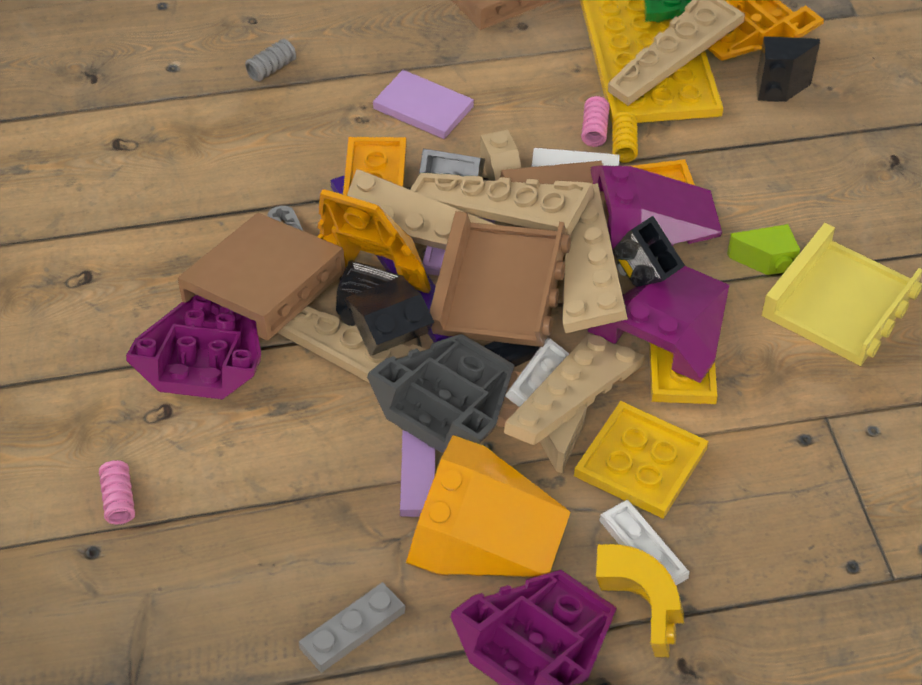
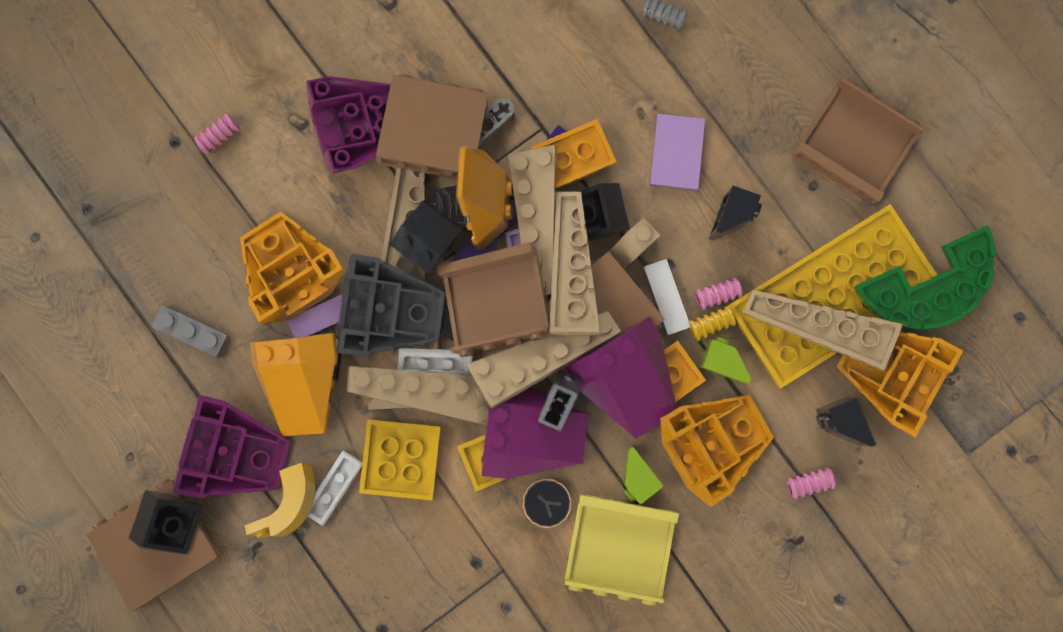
camera: 70 degrees right, 35 degrees up
(336, 477) = (286, 269): none -> light orange wedge
(515, 72) = (736, 210): none -> black slope
(673, 139) = (724, 361): none -> lime slope
(760, 343) = (546, 503): none -> black tile
(762, 179) = (715, 444): none -> light orange wedge
(836, 123) = (811, 483): none -> bright pink piece

